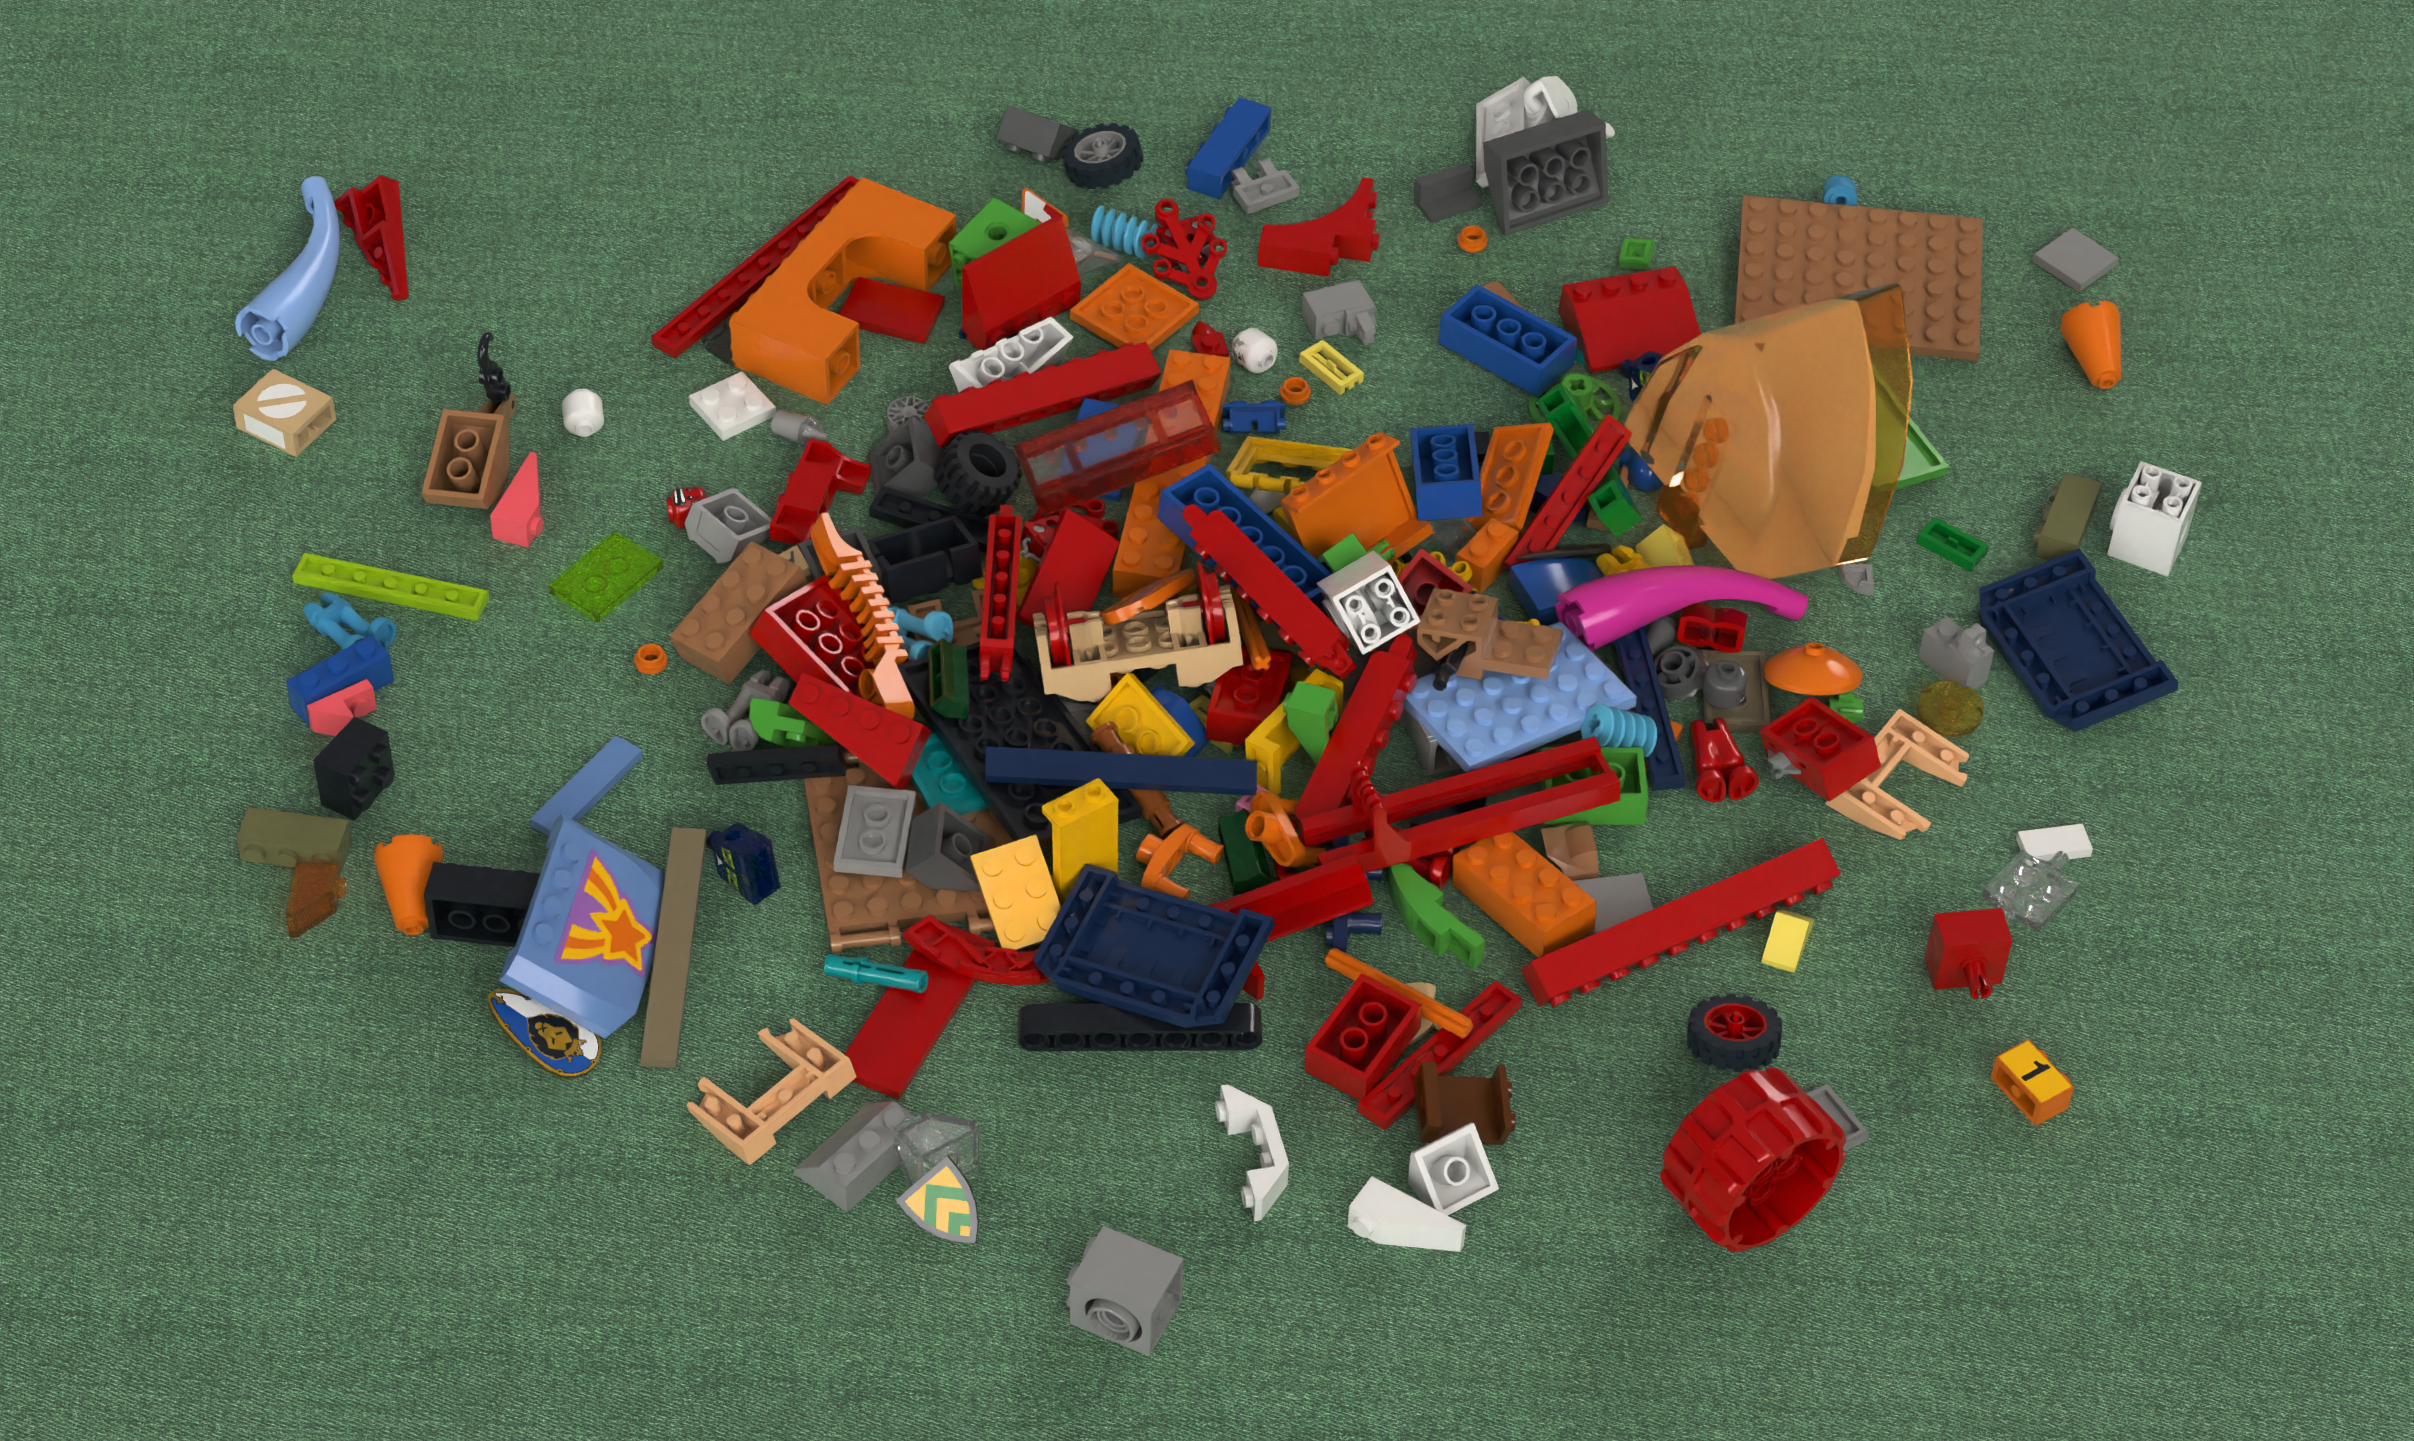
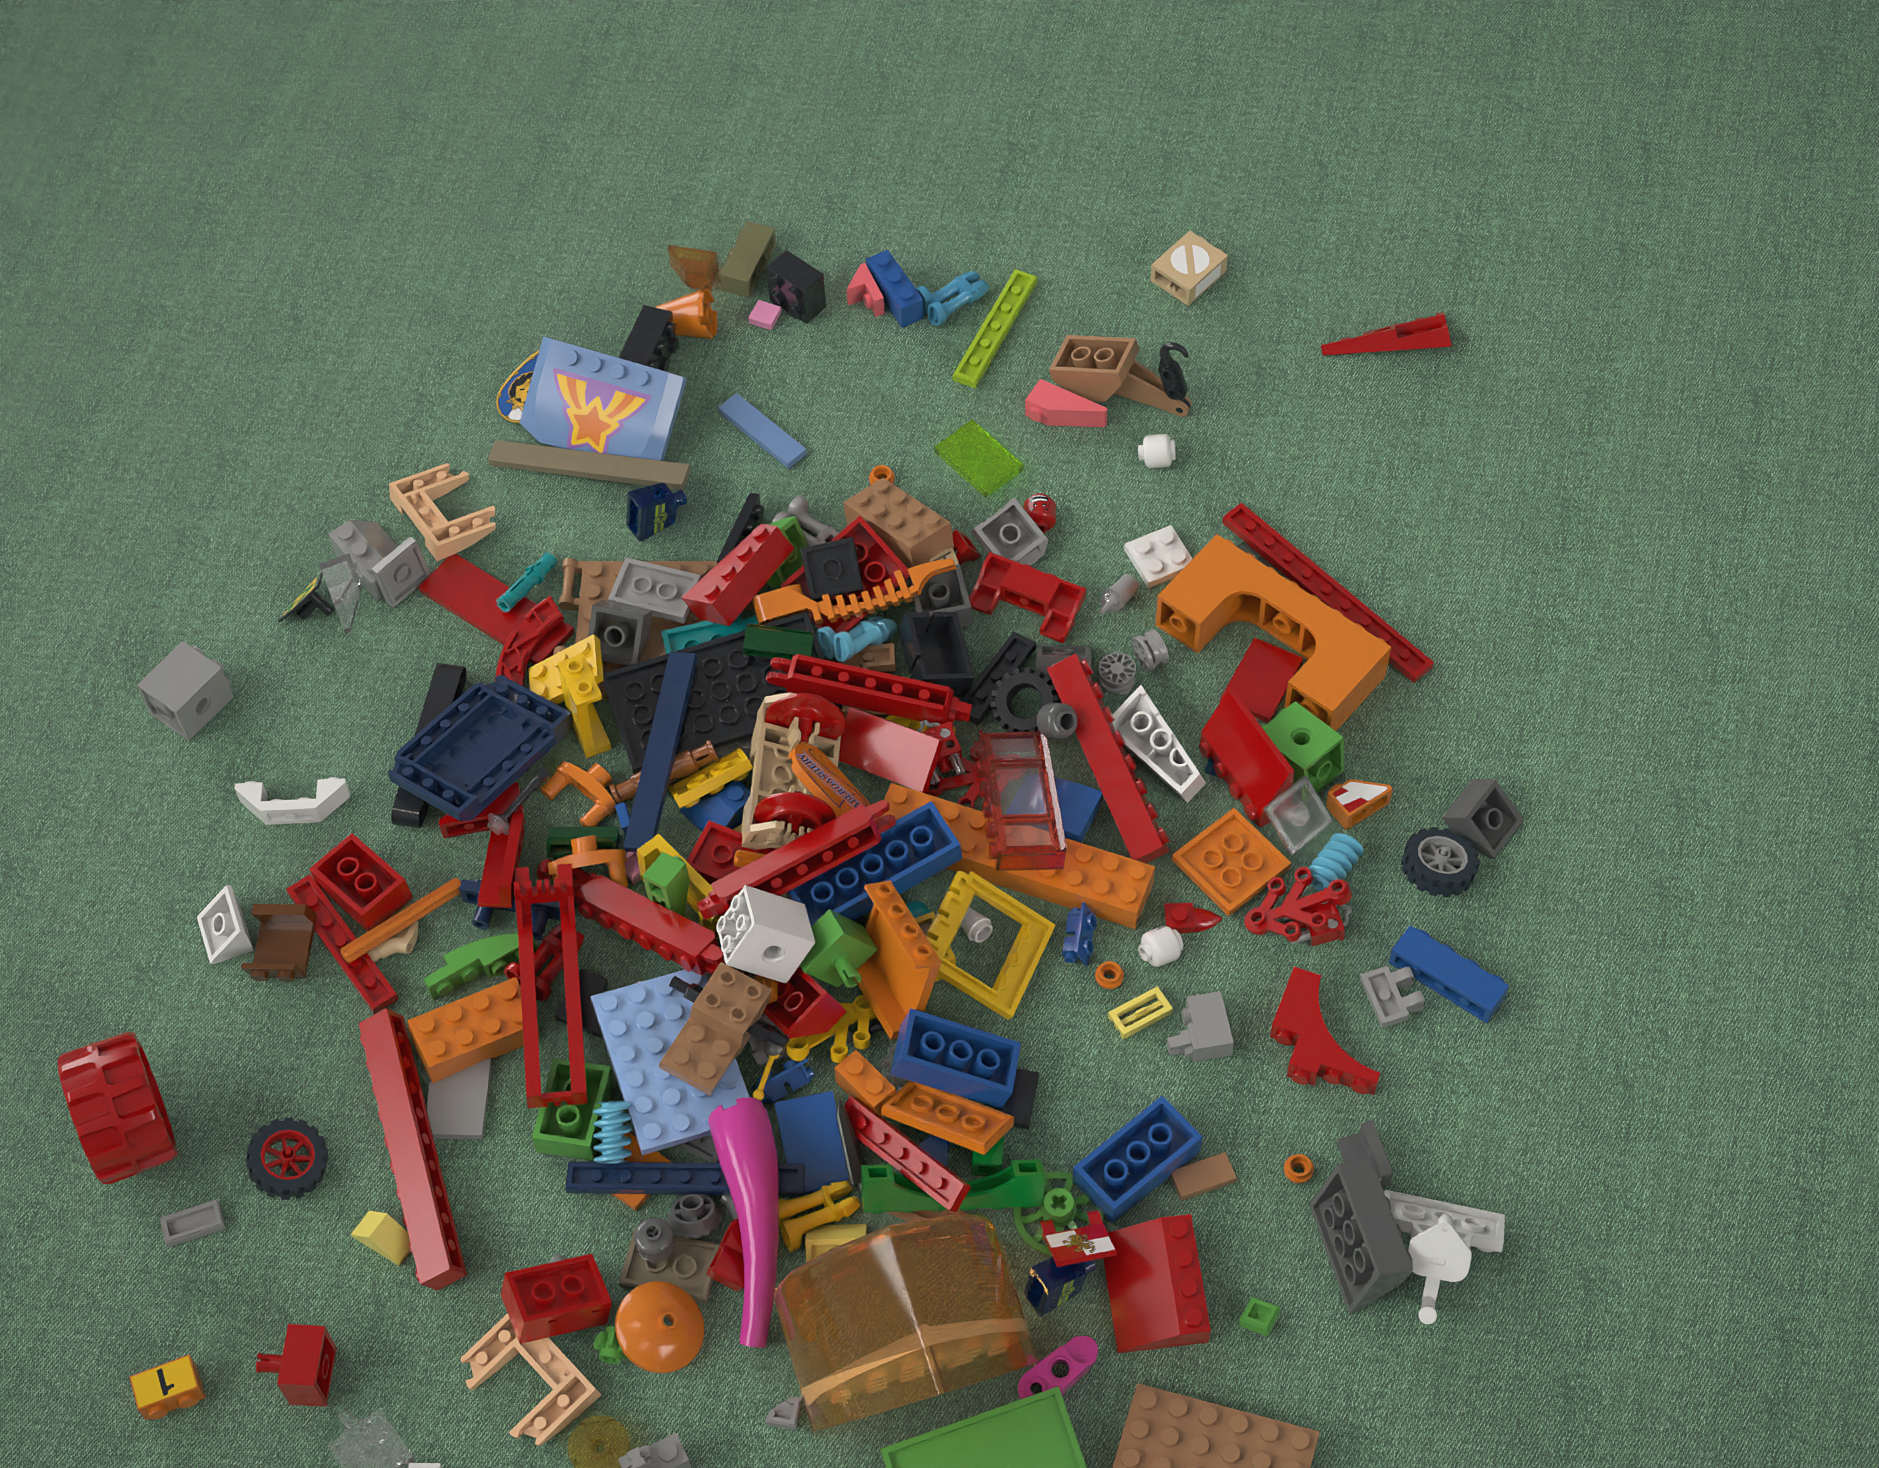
camera: 105 degrees right, 10 degrees up
(292, 301) = (1313, 274): light blue brick -> none
(387, 815) = (764, 315): none -> bright pink tile
(833, 643) = (832, 568): none -> black tile
(876, 389) = (1150, 650): none -> light grey wheel
(881, 1086) = (401, 572): none -> light grey tile
(1017, 419) = (1057, 720): none -> dark grey head
(1191, 889) = (499, 823): none -> black piece
(1206, 812) = (623, 815): none -> blue tile
(1401, 1220) = (198, 881): white slope -> none
(1572, 849) = (510, 1083): medium nougat slope -> none
(1618, 361) = (1080, 1243): none -> flag
(1718, 759) = (588, 1222): red piece -> none

